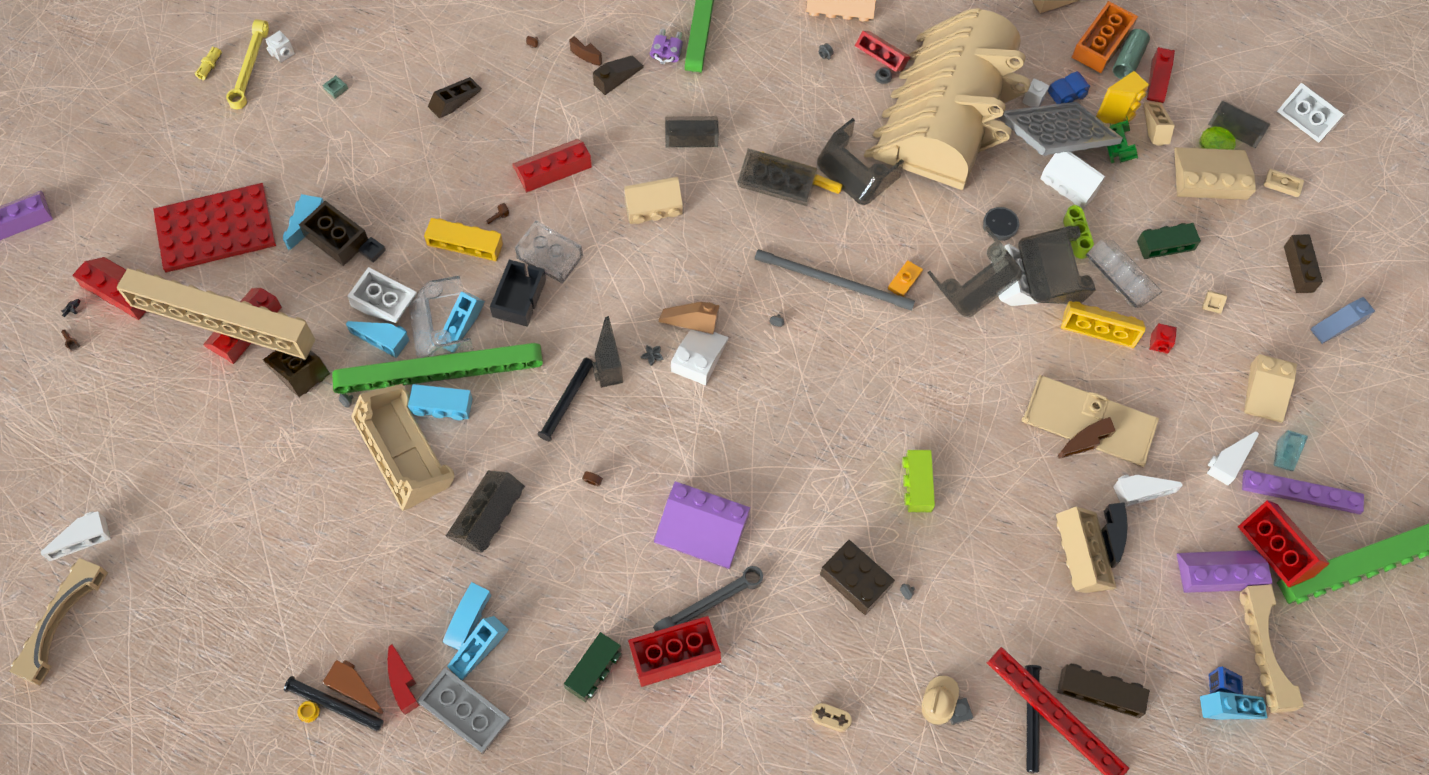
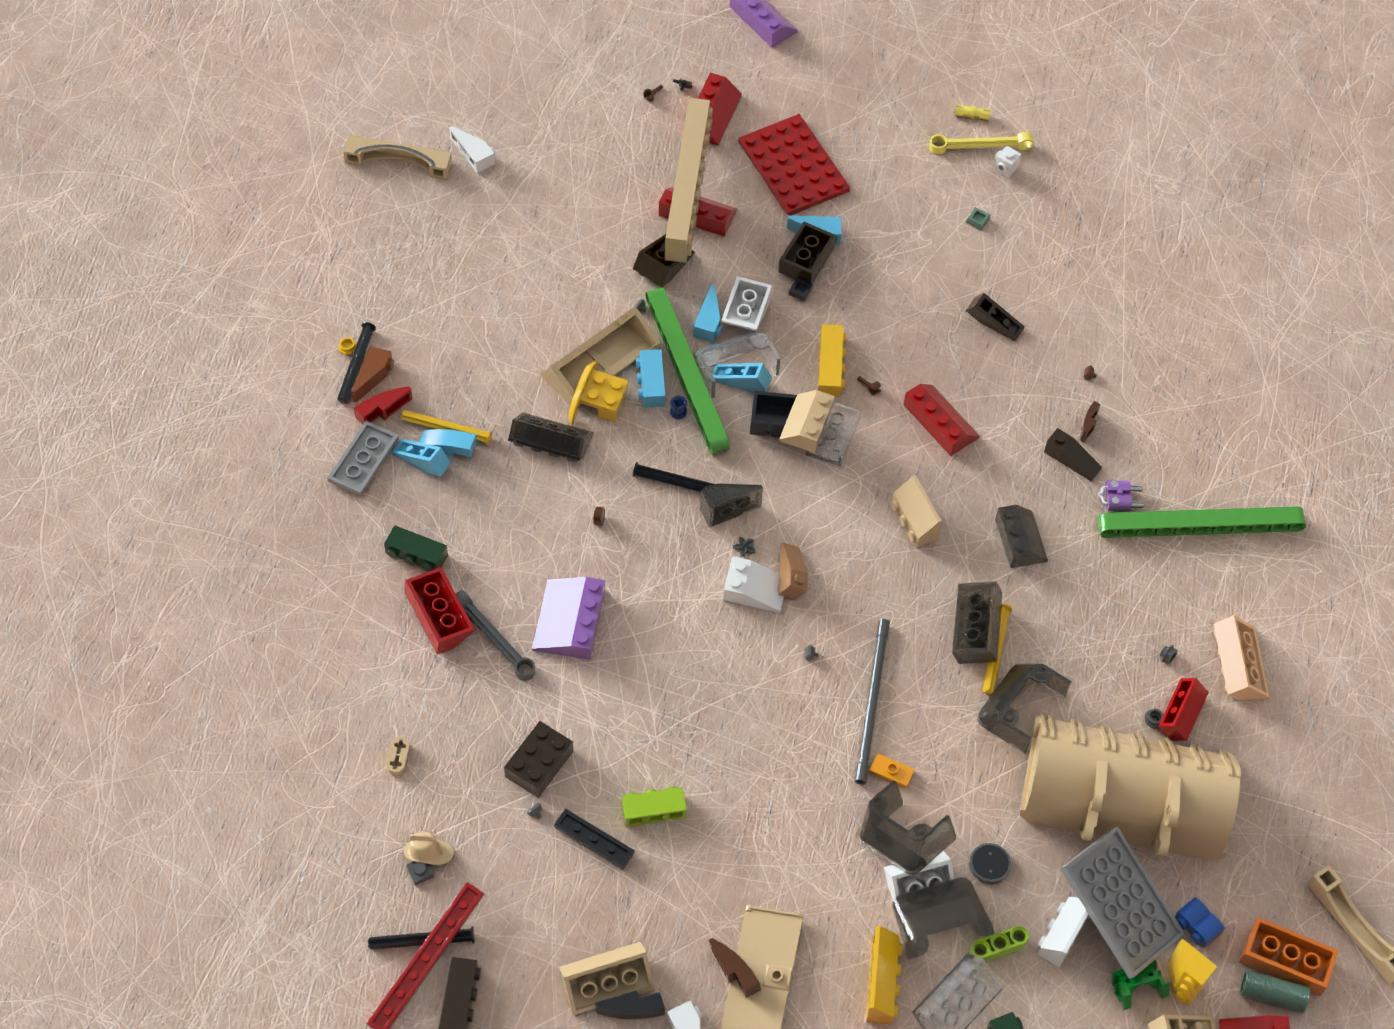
camera: 80 degrees right, 5 degrees down
(444, 616) = (436, 423): none -> yellow axle
(448, 452) = (599, 391): none -> yellow piece
(481, 387) = (678, 407): none -> clear blue bush
(540, 263) = (807, 420): none -> tan slope
(944, 540) = (594, 839): none -> black plate
(1036, 93) = (1179, 883): white brick -> none

